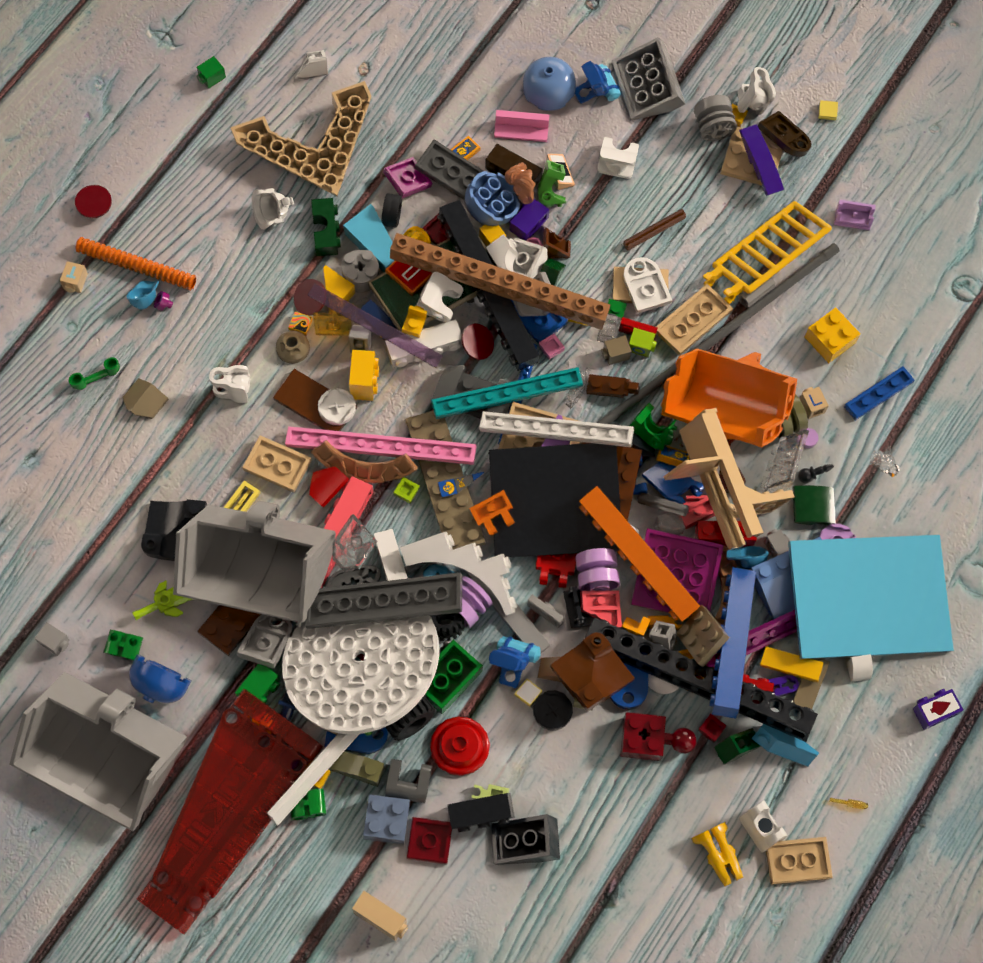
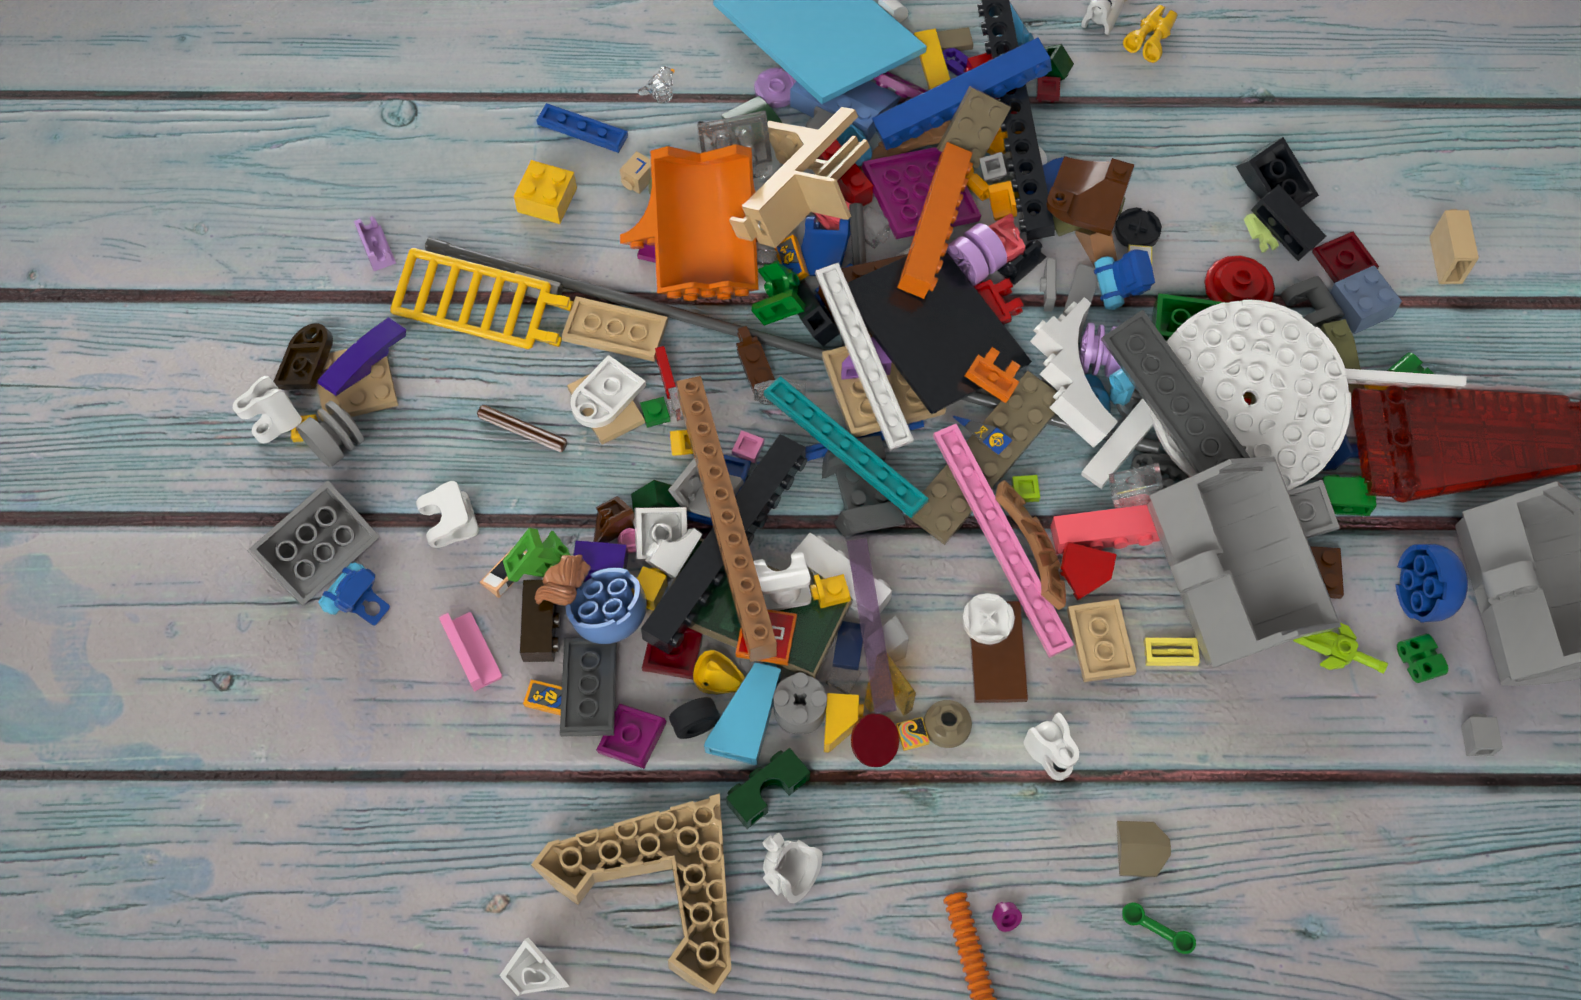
camera: 120 degrees left, 5 degrees down
(143, 294) = (1008, 949): dark azure cap -> none
(164, 522) = (1260, 697): black slope -> none
(363, 375) = (933, 608): yellow brick -> none
(477, 341) = (798, 521): dark red piece -> none
(549, 83) = (392, 664): medium blue cylinder -> none
(616, 350) = (712, 378): dark tan brick -> none
(642, 342) = (681, 360): lime brick -> none
(652, 748) = (1098, 134): dark red brick -> none
(828, 110) = (239, 338): light yellow tile -> none

